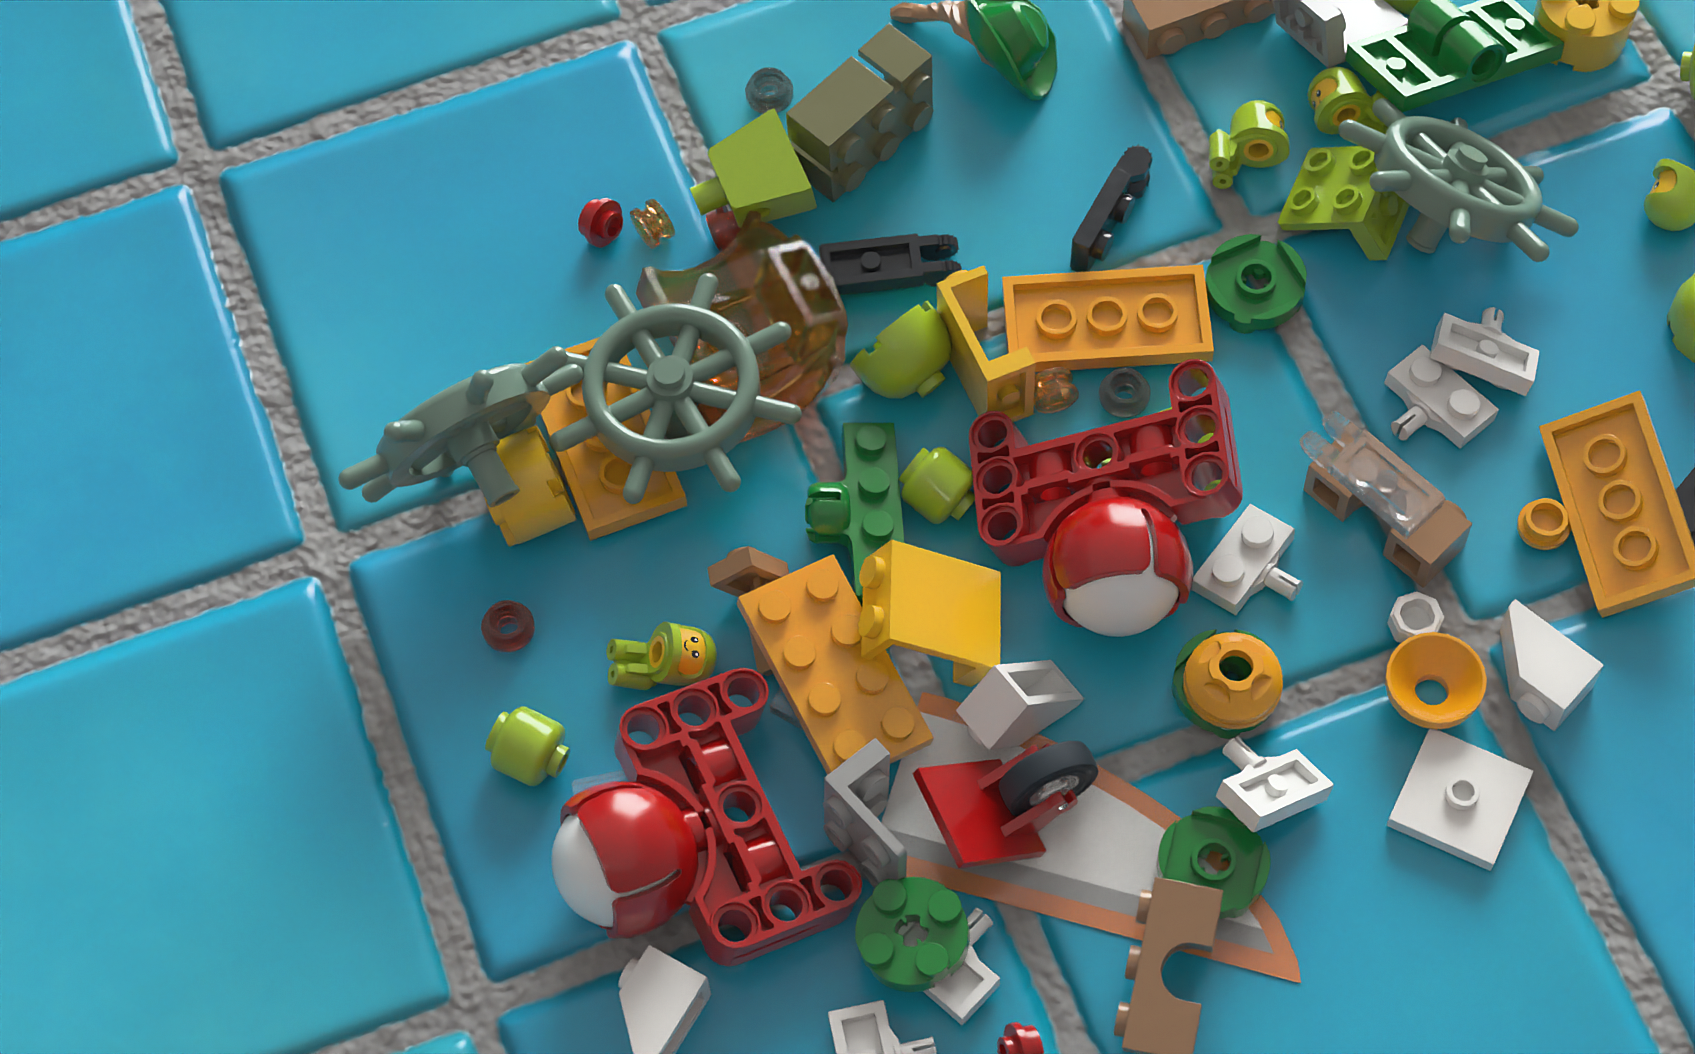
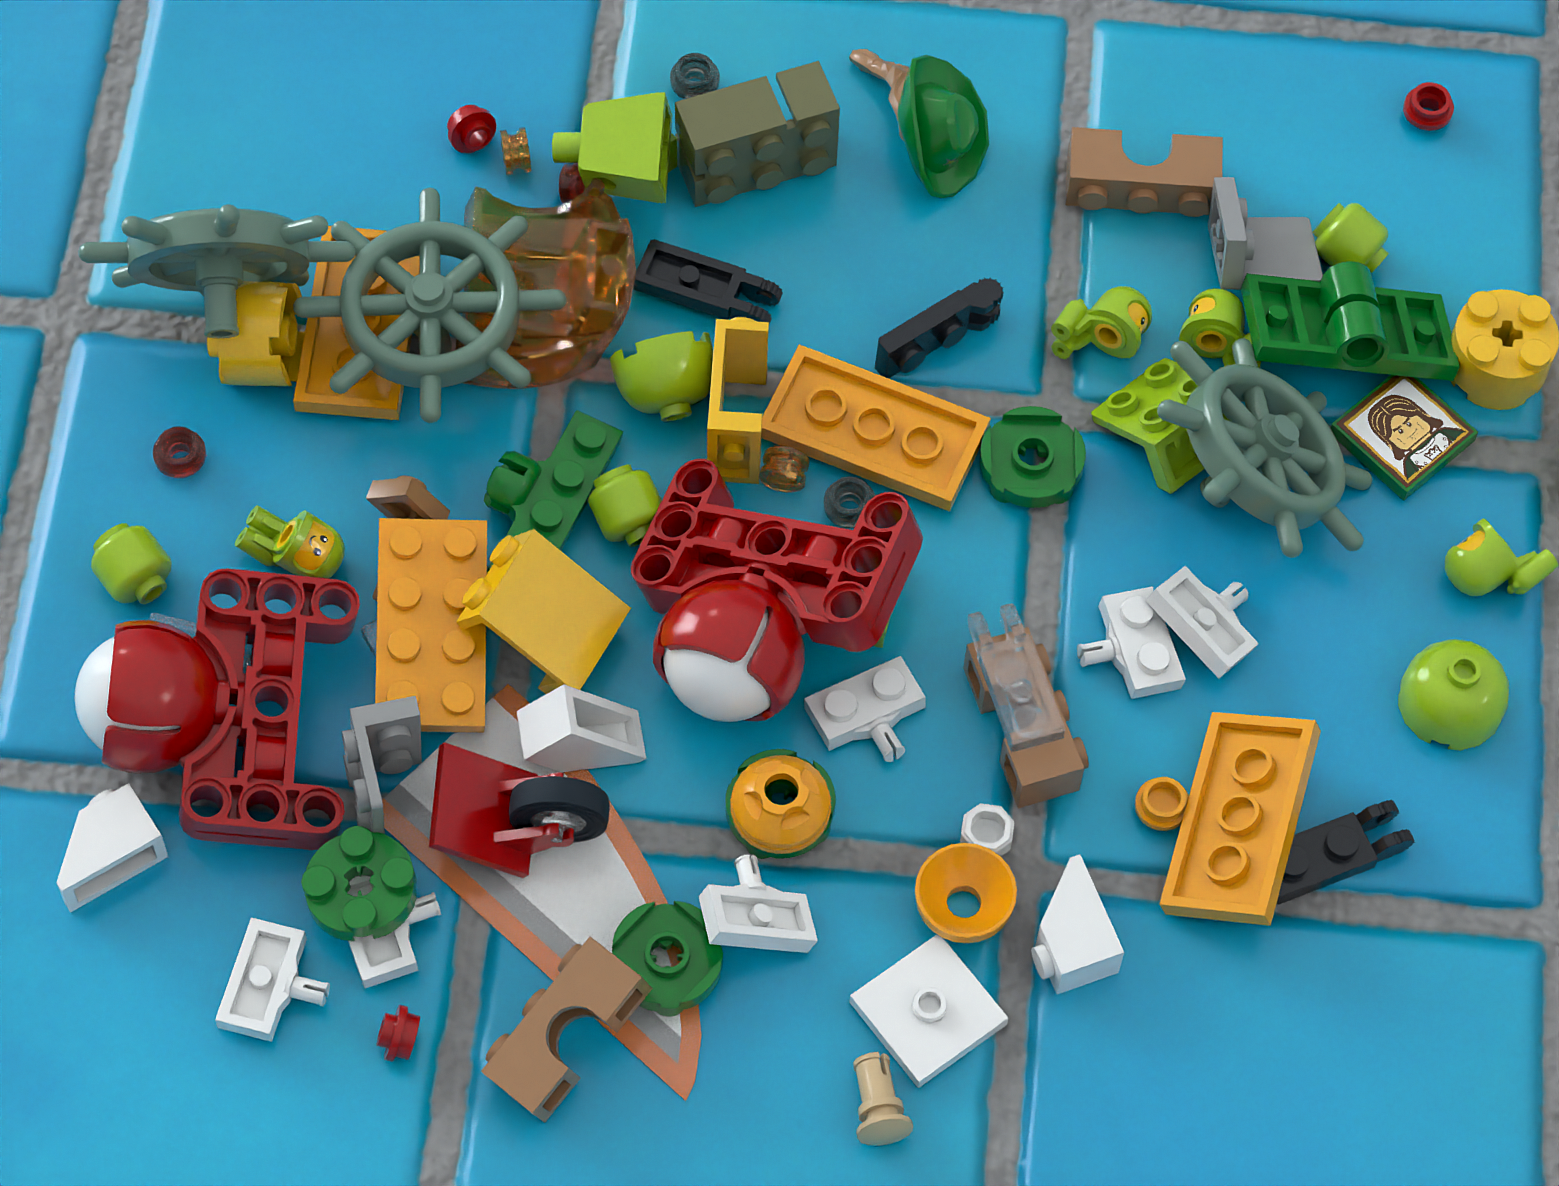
camera: 20 degrees right, 0 degrees up
(1474, 902) = (880, 1108): none -> tan pin
(1544, 120) = (1403, 433): none -> tile

